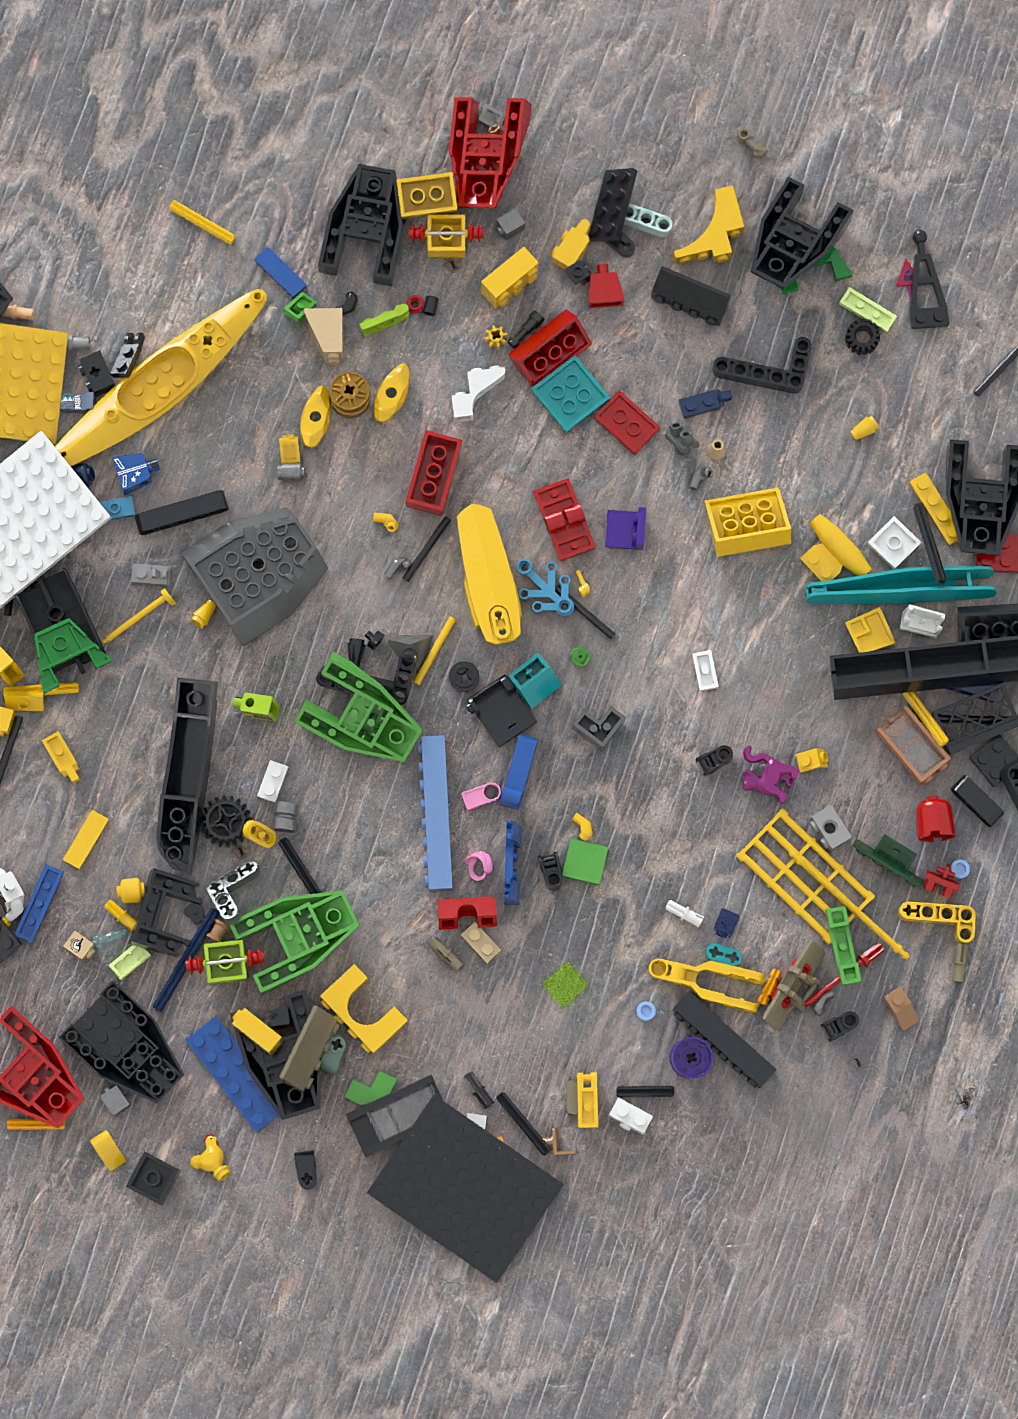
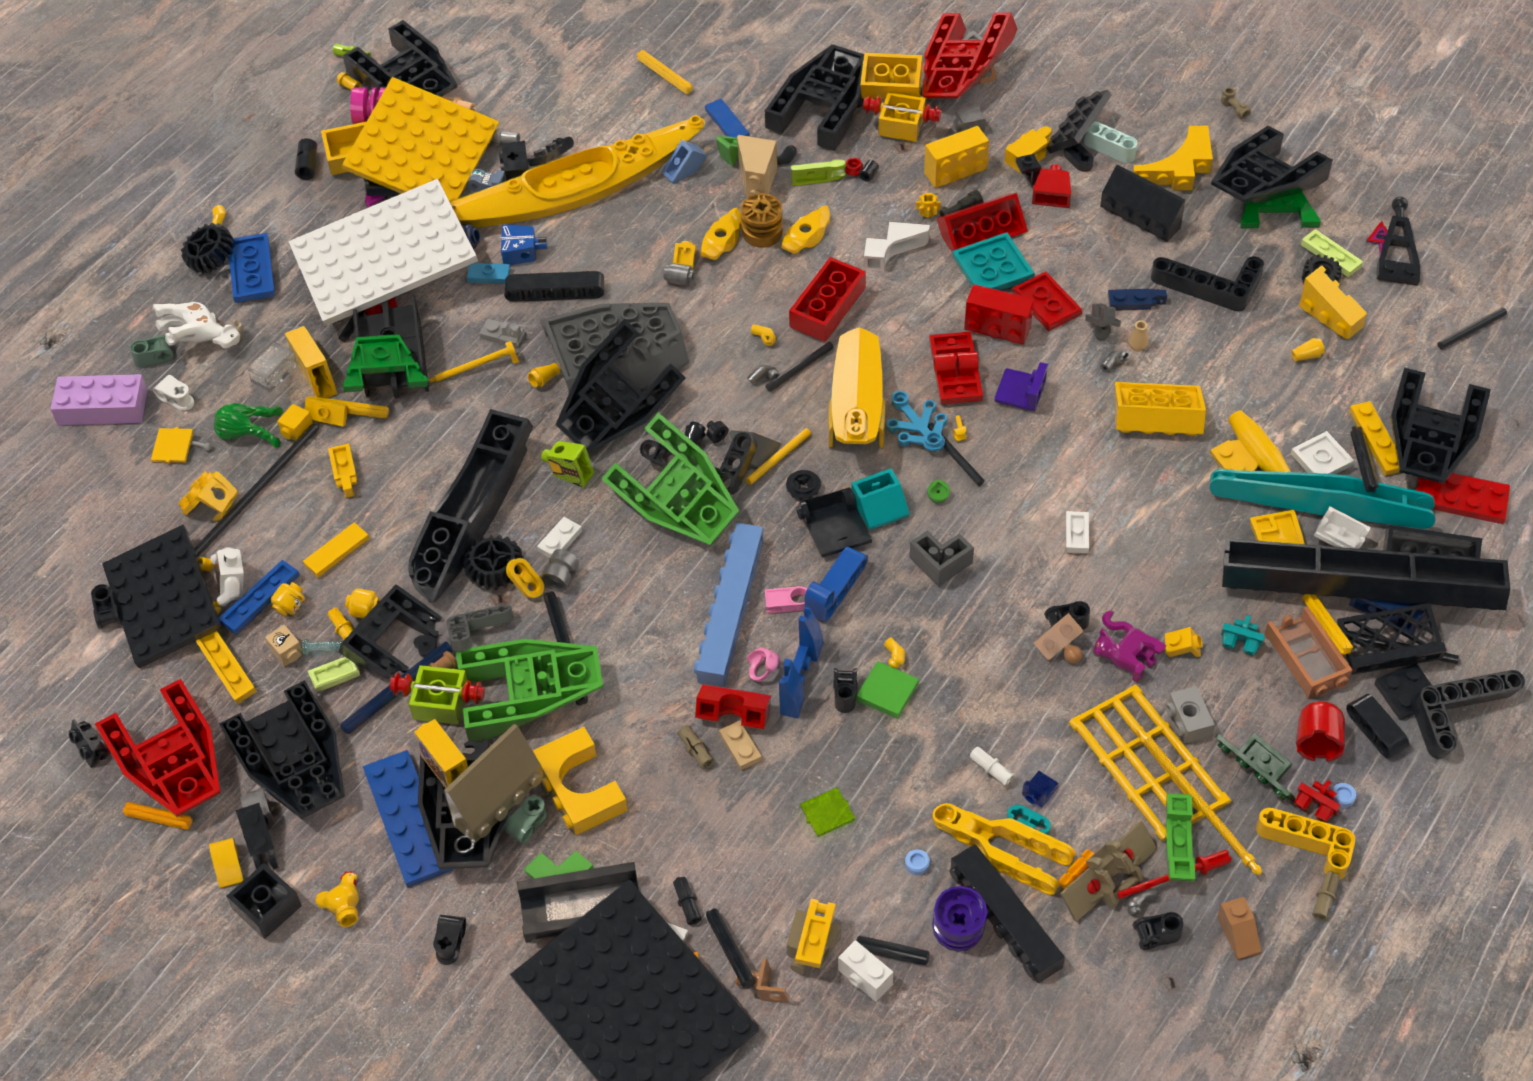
camera: 20 degrees right, 25 degrees down
(38, 977) = (226, 667): none -> yellow plate
(65, 901) = (287, 599): none -> yellow head
(125, 1124) = (256, 834): none -> black hinge
(256, 336) = (684, 161): none -> medium blue slope
(272, 639) = (605, 401): none -> black wedge
(590, 458) = (998, 314): none -> red brick
(713, 782) = (1059, 638): none -> medium nougat plate
(850, 741) = (1232, 633): none -> teal hips
(877, 377) = (1330, 305): none -> yellow wedge

